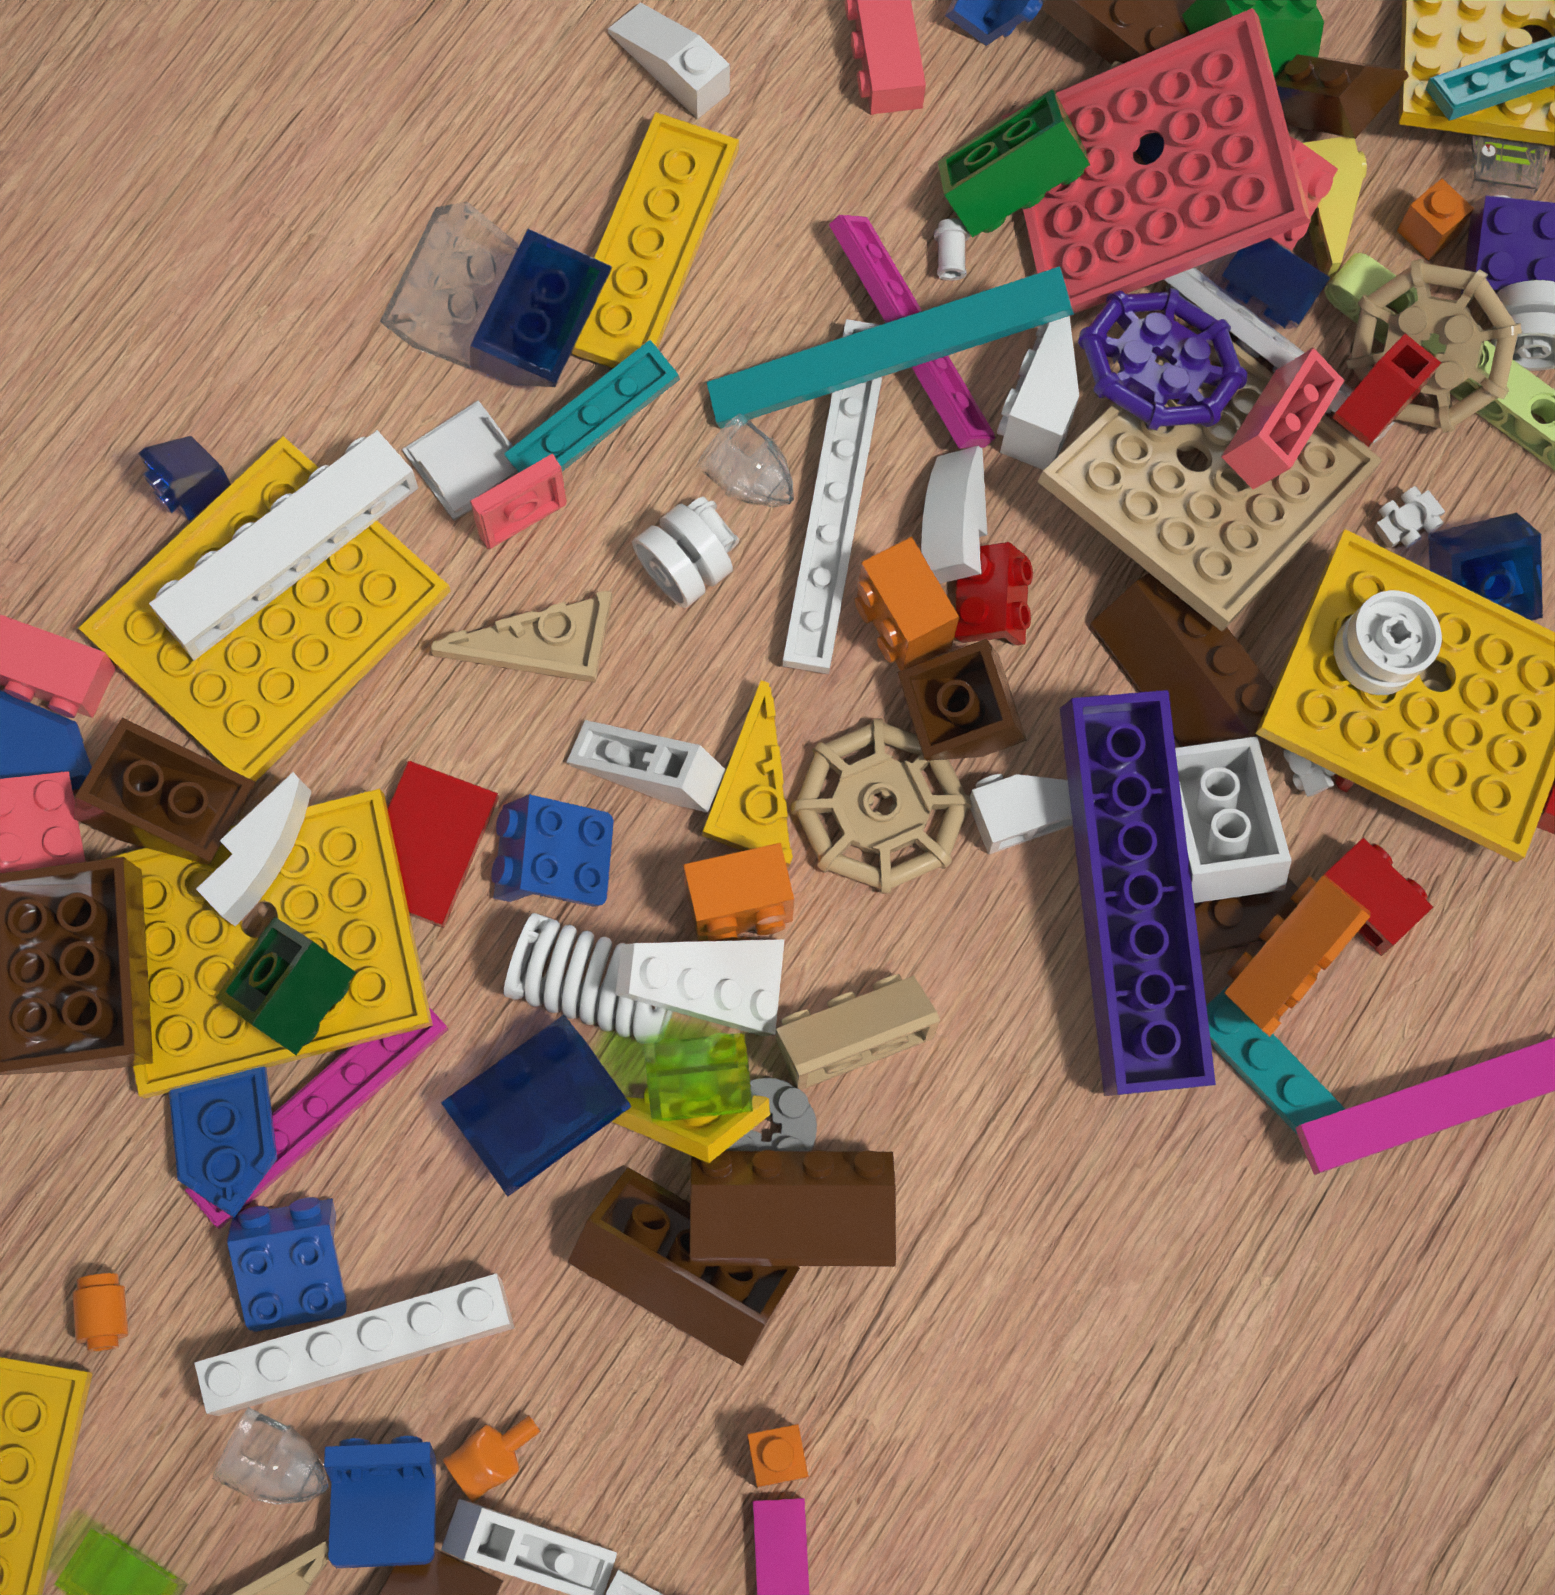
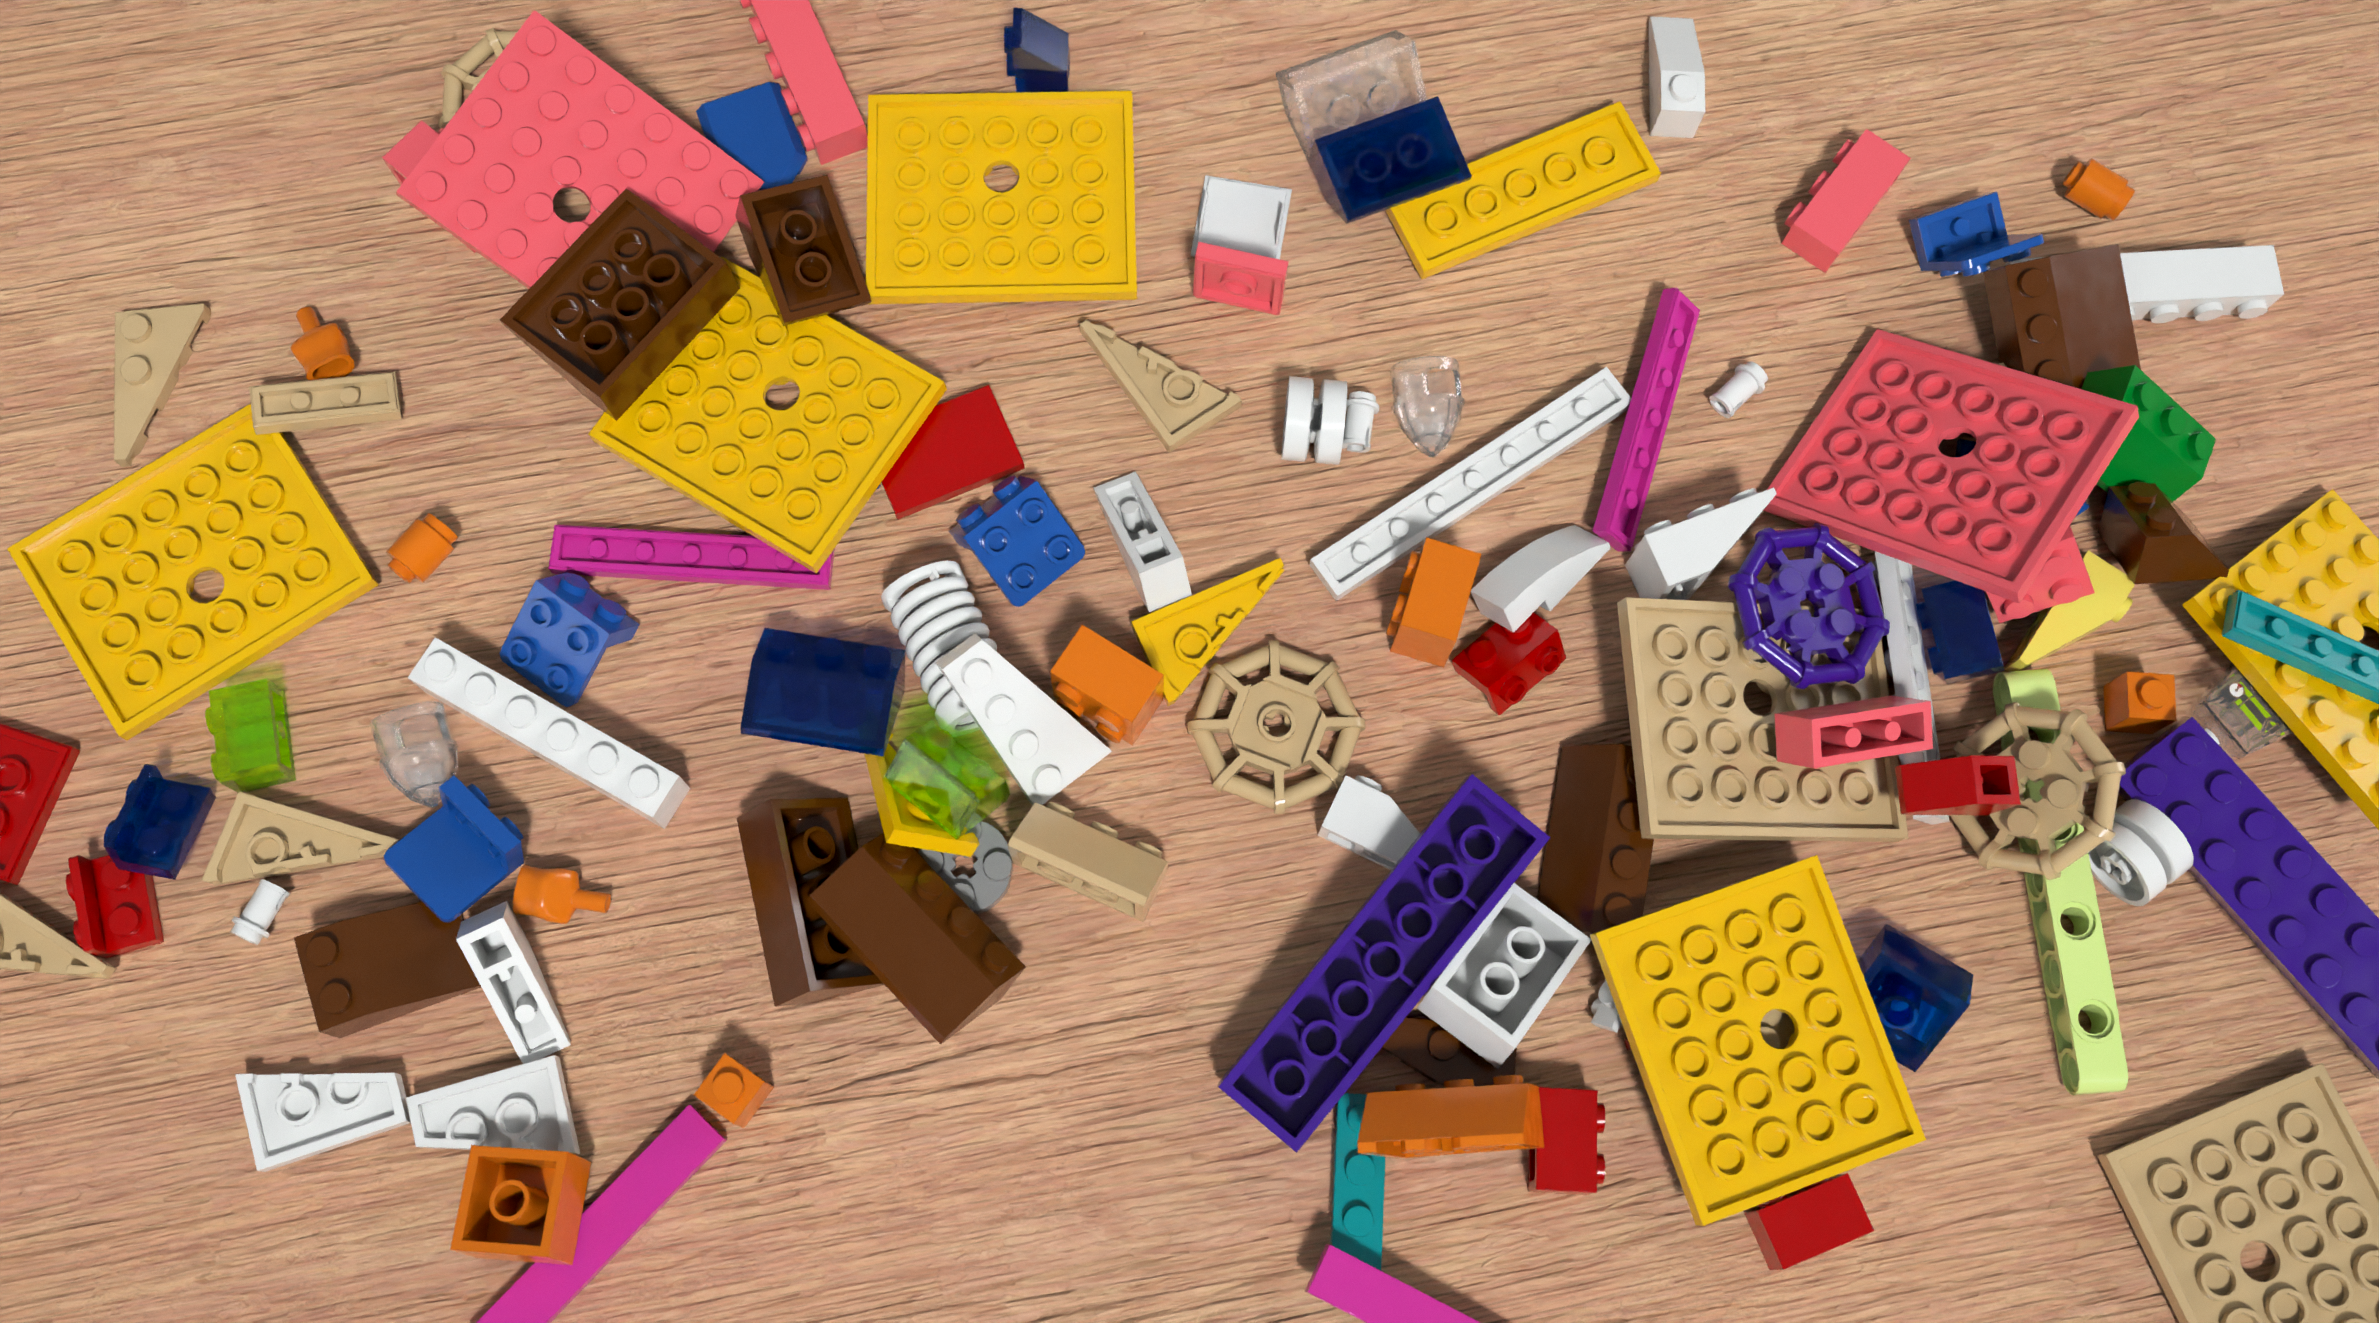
camera: 45 degrees right, 0 degrees up
(224, 1137) = (611, 514): blue tile -> none
(258, 850) = (820, 344): white slope -> none
(284, 544) = (1052, 161): white brick -> none
(286, 985) = (744, 452): dark green slope -> none
(597, 410) = (1360, 268): teal plate -> none
(891, 347) = (1618, 414): teal tile -> none
(962, 704) = (1404, 710): reddish brown slope -> none
(1012, 164) = (1843, 367): green slope -> none
(1387, 642) = (1756, 965): white wheel -> none
(1405, 522) = (1882, 901): white piece -> none

